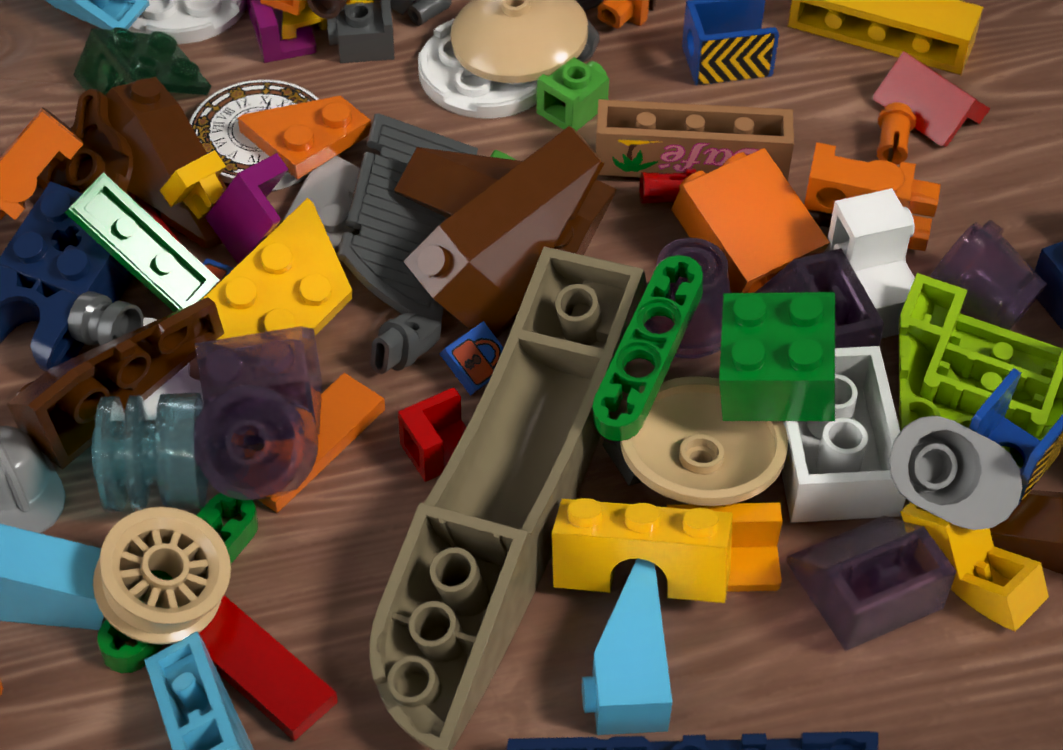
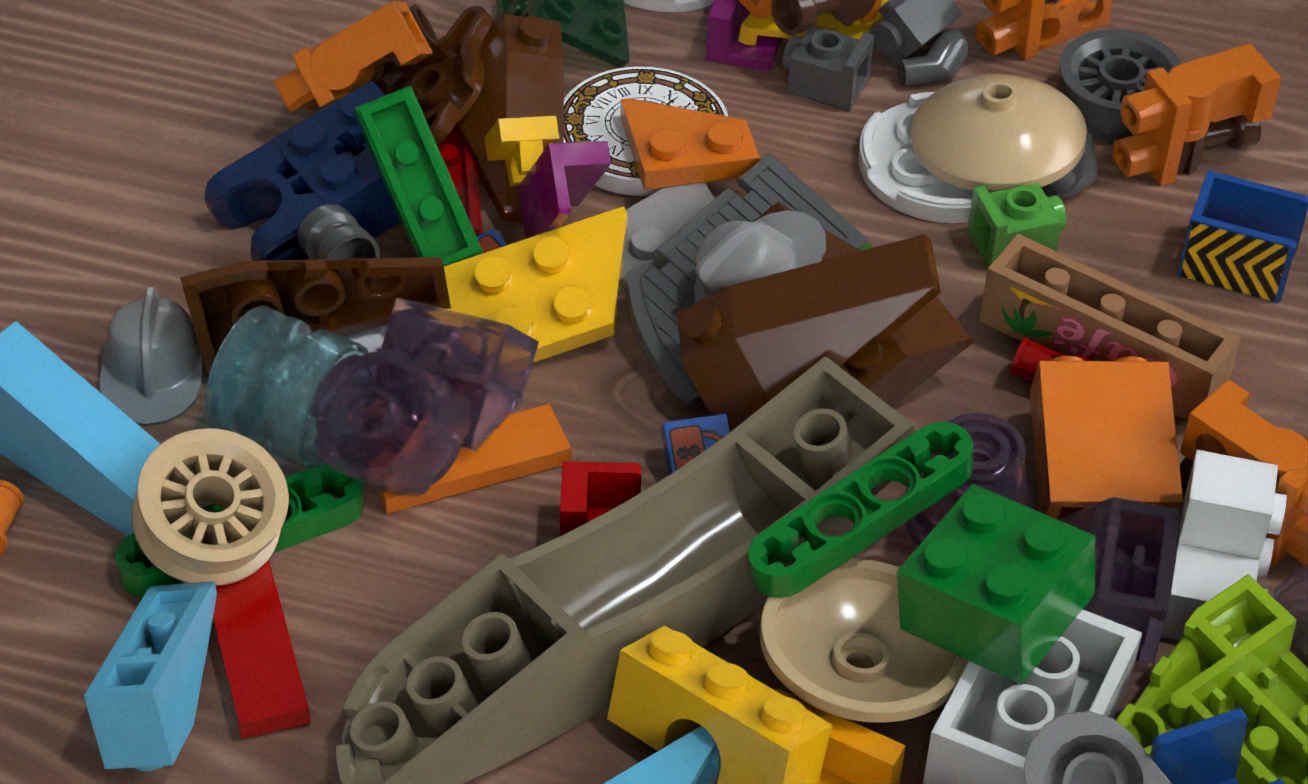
camera: 30 degrees right, 5 degrees down
(403, 341) = (633, 400): dark grey piece -> none
(430, 194) = (757, 249): none -> light grey piece

